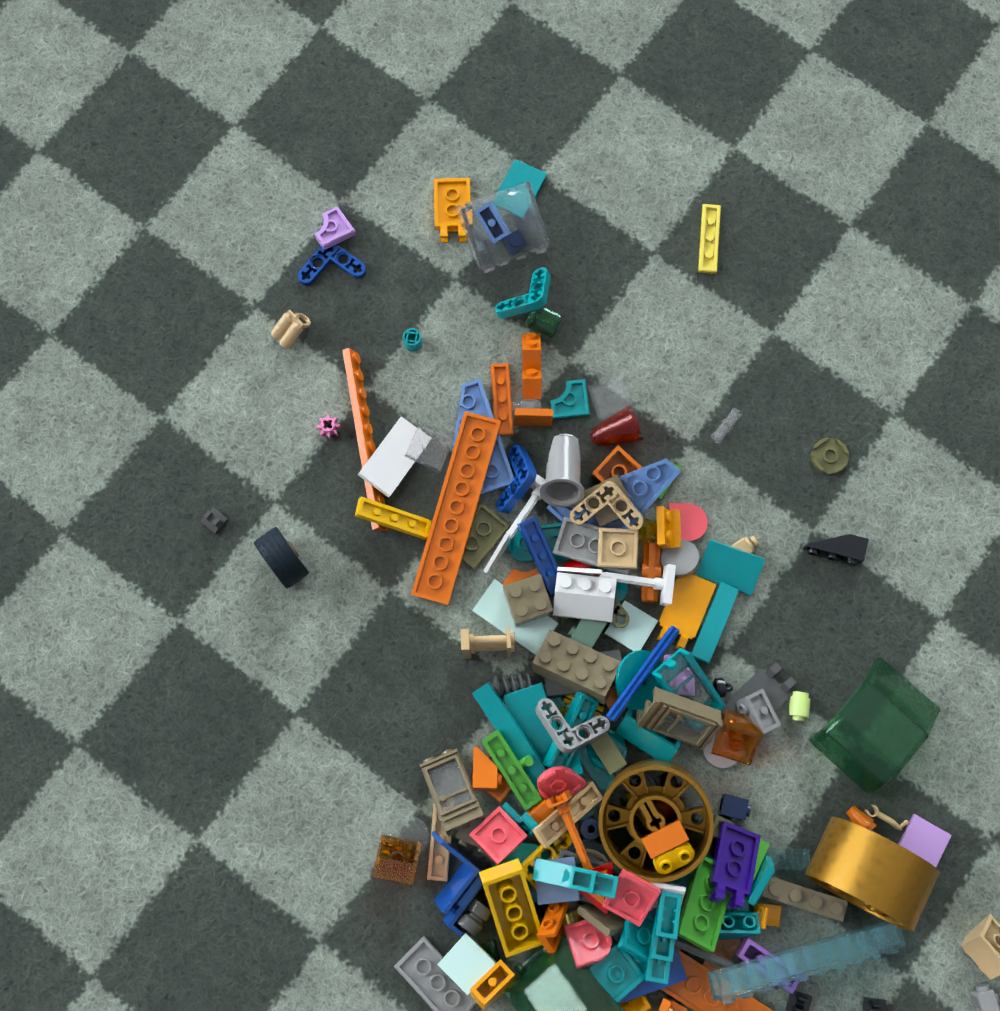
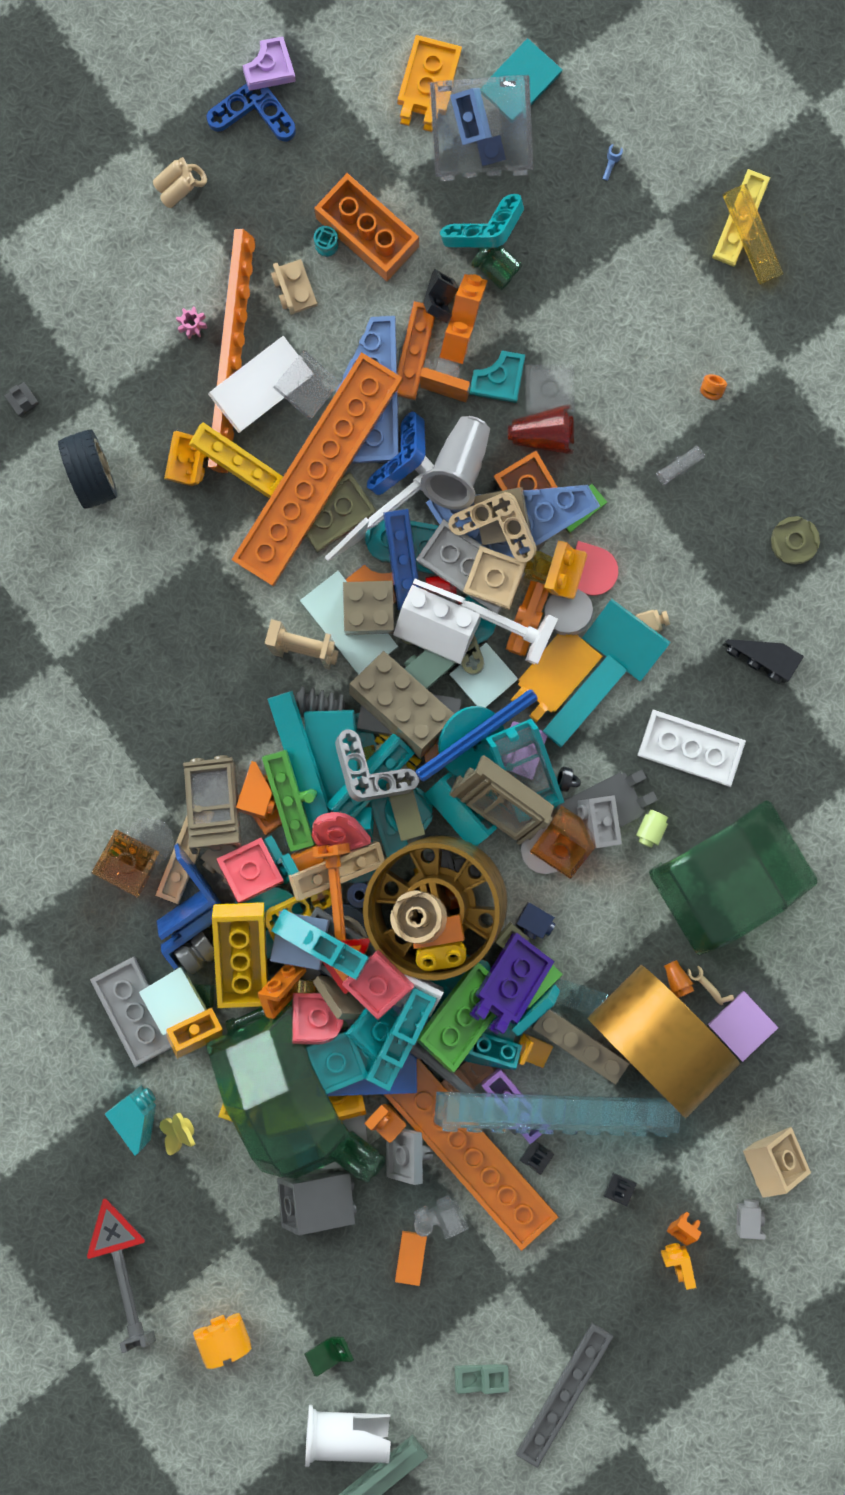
camera: 15 degrees right, 10 degrees up
(353, 530) = (184, 461): none -> light orange bracket
(398, 378) = (295, 287): none -> tan bracket
(440, 321) = (367, 227): none -> orange brick
(508, 353) = (439, 295): none -> black slope
(603, 223) = (612, 159): none -> medium blue hand
(636, 829) = (406, 910): none -> tan brick
(722, 247) = (752, 234): none -> clear yellow tile
(731, 360) = (714, 385): none -> orange tile
(807, 634) = (691, 748): none -> white tile

